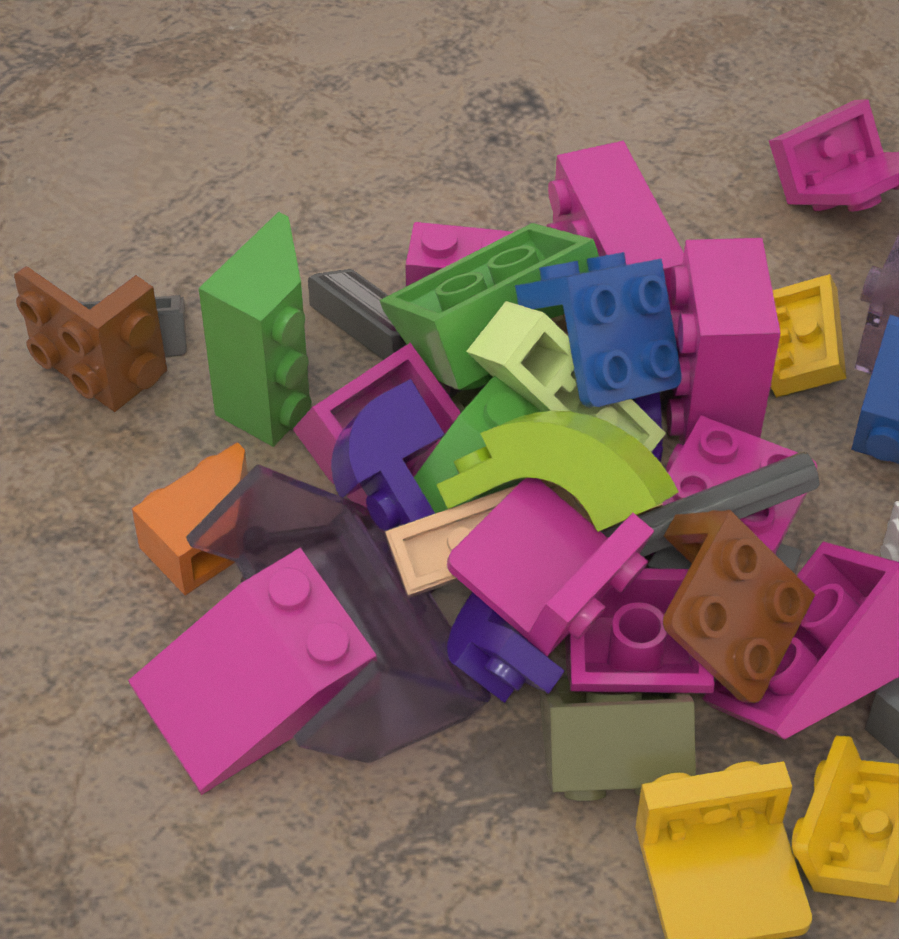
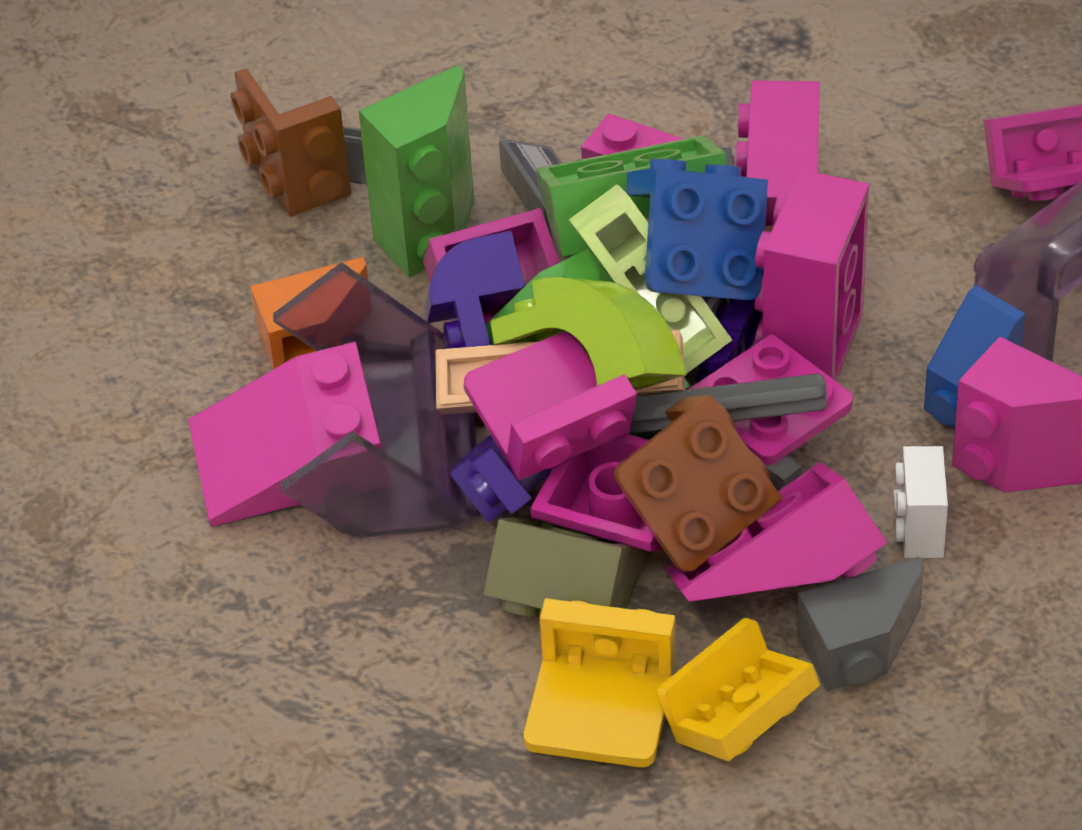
camera: 25 degrees right, 5 degrees down
(810, 336) = (915, 293): yellow bracket -> none

